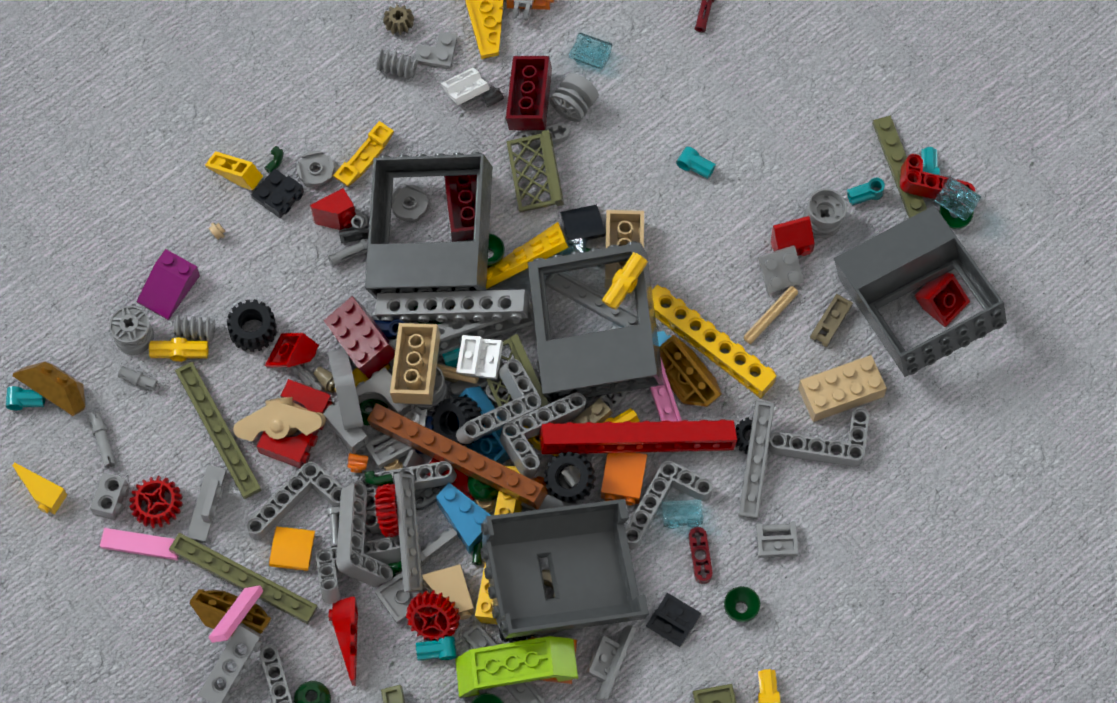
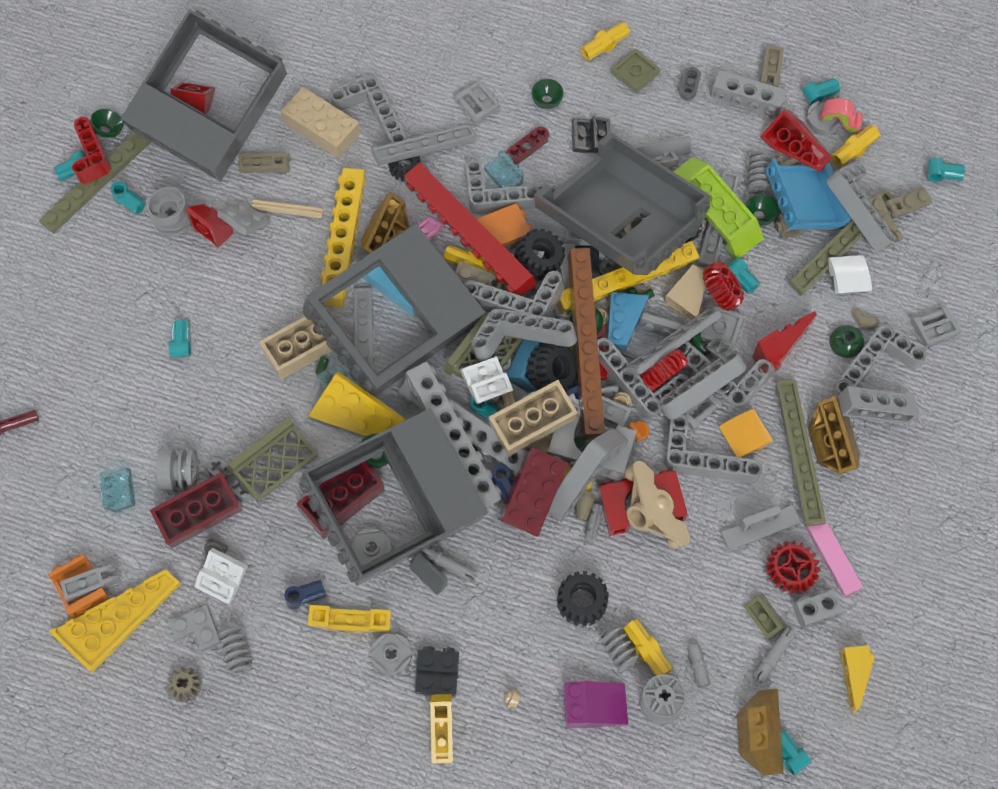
camera: 125 degrees left, 0 degrees up
(136, 457) = (765, 616): none -> olive slope
(218, 430) = (692, 564): olive plate -> none
(235, 614) = (842, 419): bright pink tile -> none
(277, 160) = (409, 697): dark green arm -> none
(292, 350) = (583, 549): red slope -> none
(334, 211) = (424, 598): red slope -> none
(356, 220) = (421, 571): light grey pin -> none
(378, 481) = (650, 394): dark green arm -> none
(407, 135) = (307, 593): none -> dark blue piece
(583, 223) = (297, 394): black slope -> none
(624, 281) = (351, 286): yellow piece -> none
(957, 198) = (96, 119): clear light blue bracket -> none

